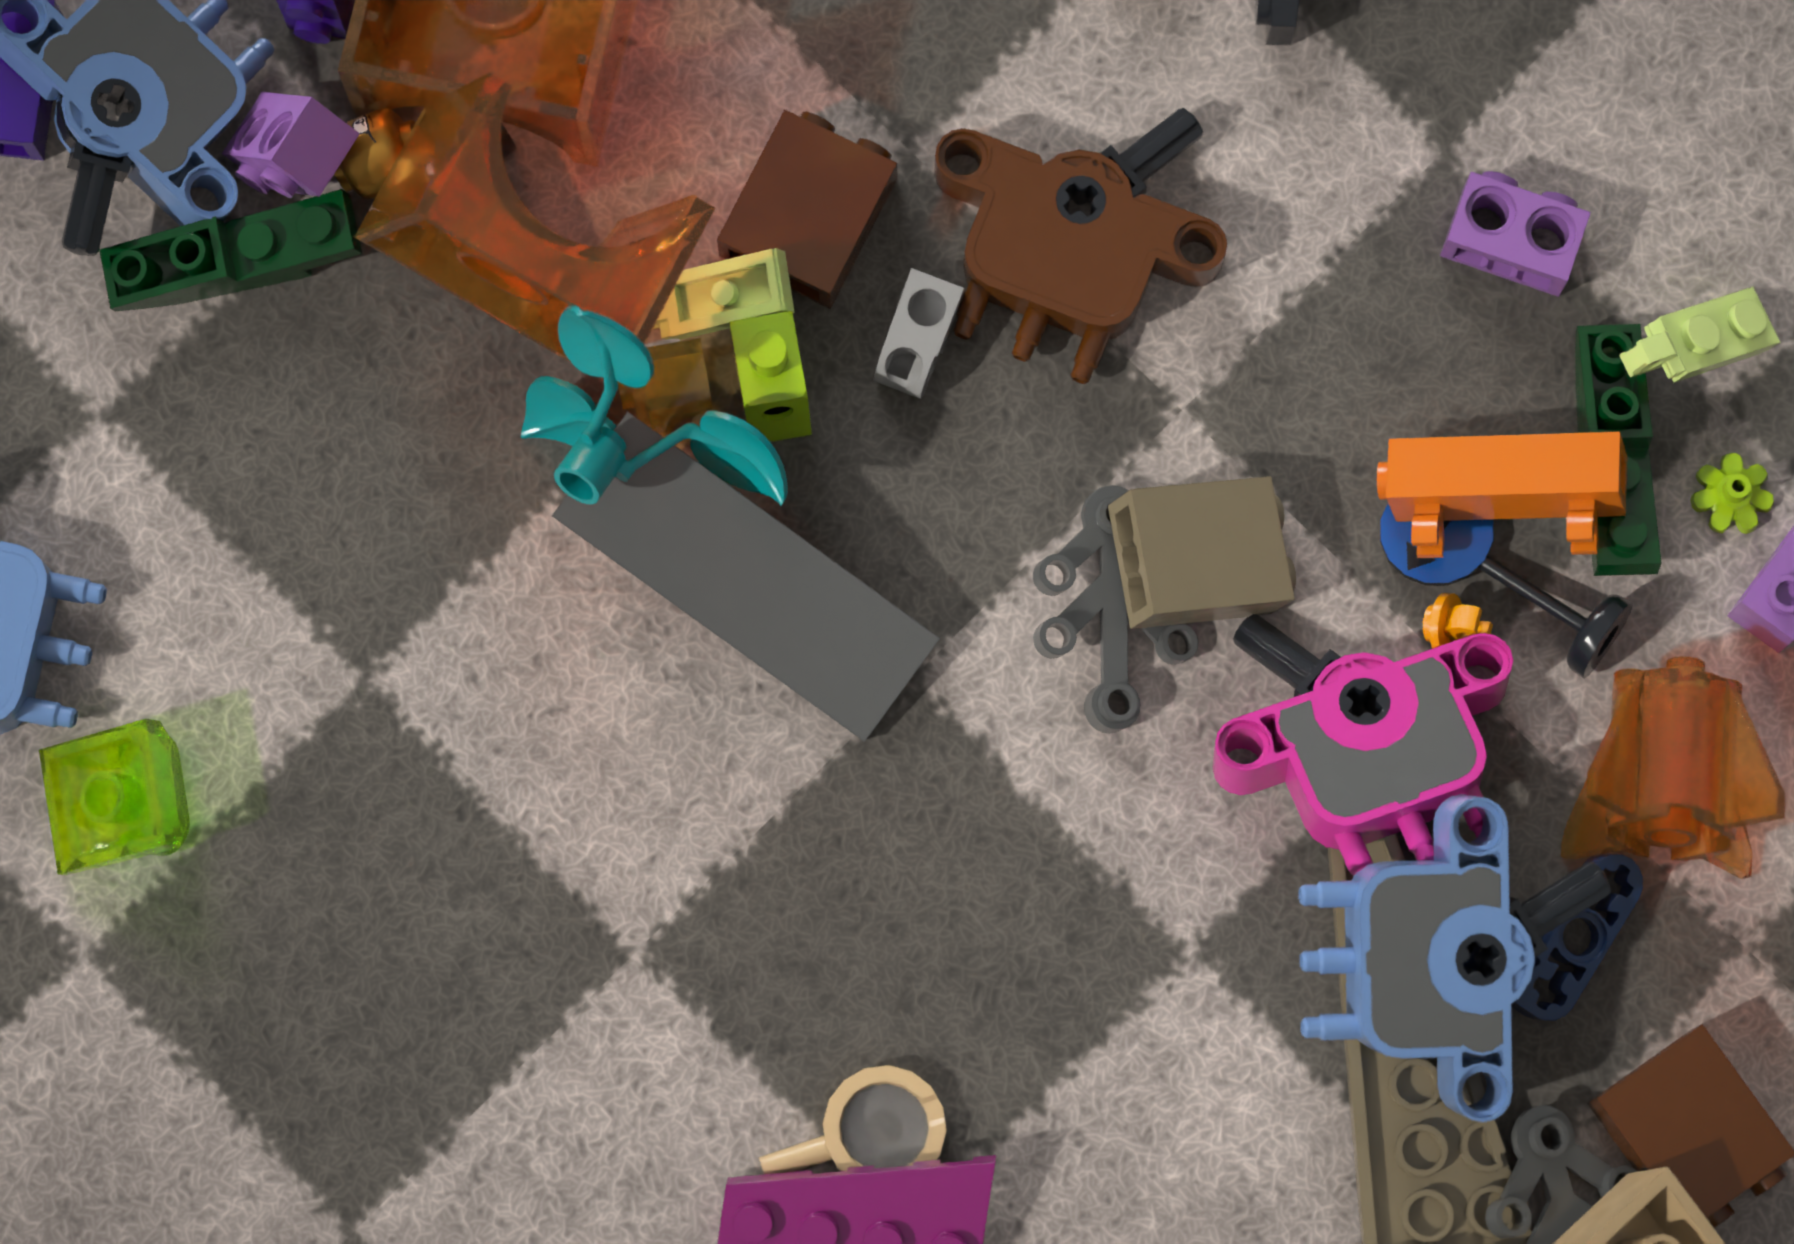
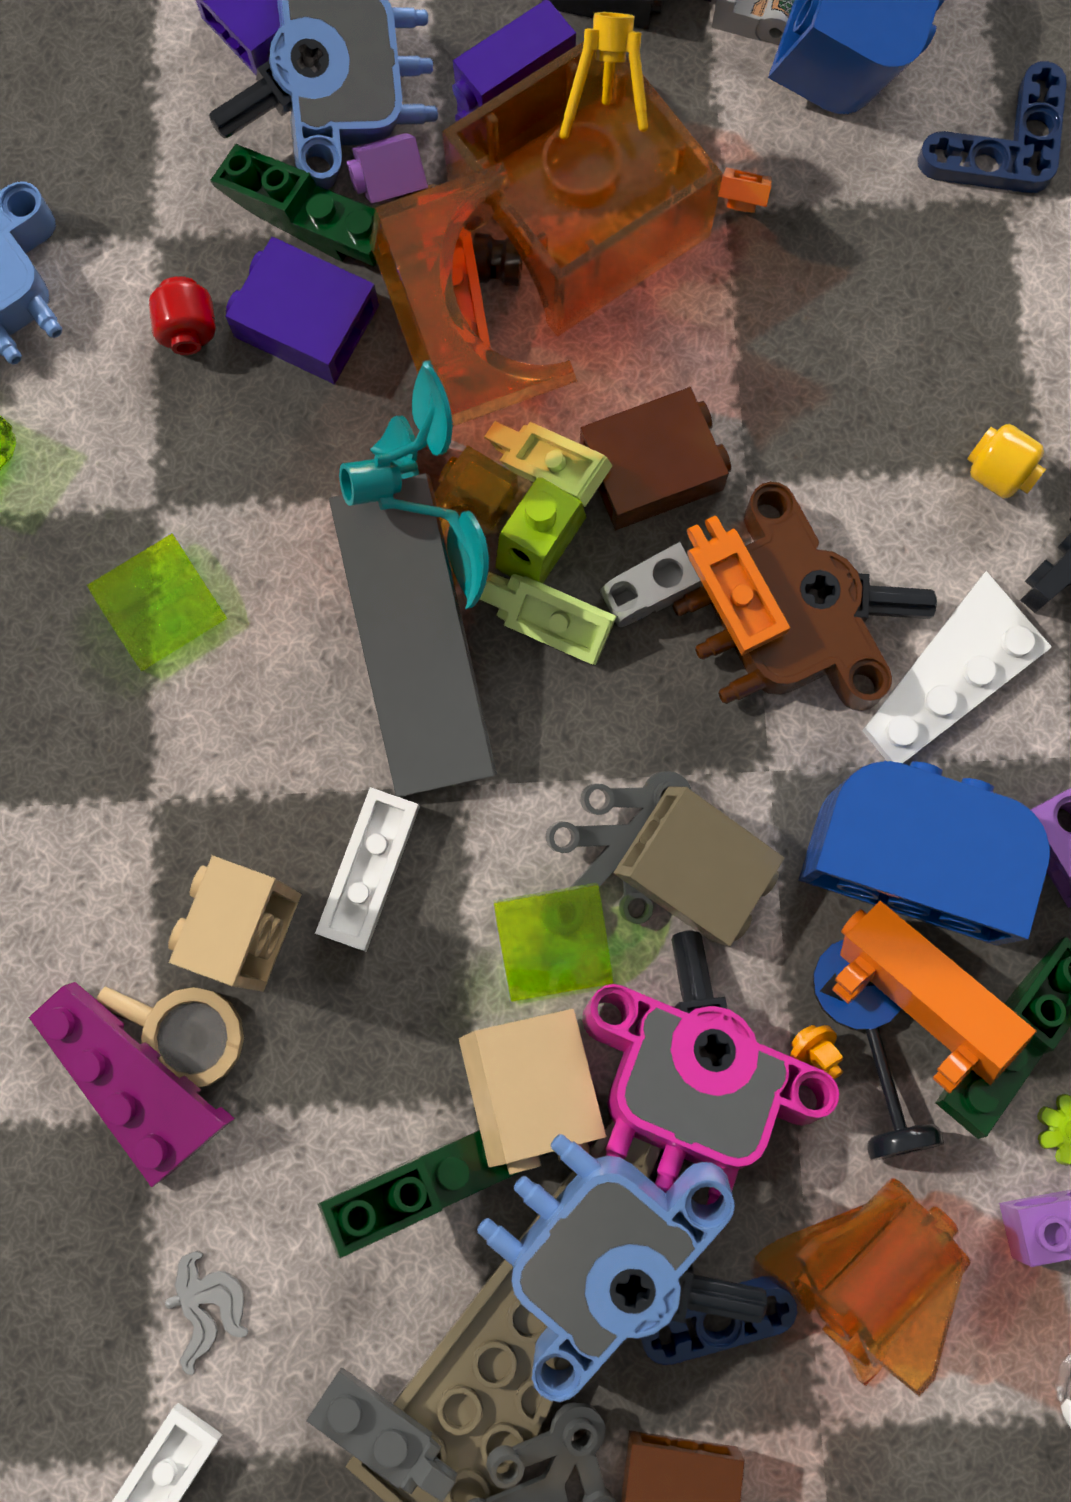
camera: 45 degrees right, 0 degrees up
(216, 467) = (182, 315): none -> red head
(327, 359) = (302, 309): none -> dark purple brick
(460, 764) = (156, 602): none -> clear neon green slope
(846, 975) = (233, 925): none -> tan brick
(855, 443) = (550, 615): none -> yellowish green hinge
(901, 830) = (367, 869): none -> white plate
(1004, 265) = (735, 586): none -> orange hinge
(1133, 739) = (553, 941): none -> clear neon green slope
(1222, 1047) = (408, 1193): none -> dark green slope
(1234, 883) = (529, 1087): none -> tan brick
(1270, 150) = (963, 665): none -> white wing
(1391, 355) = (931, 850): none -> blue brick

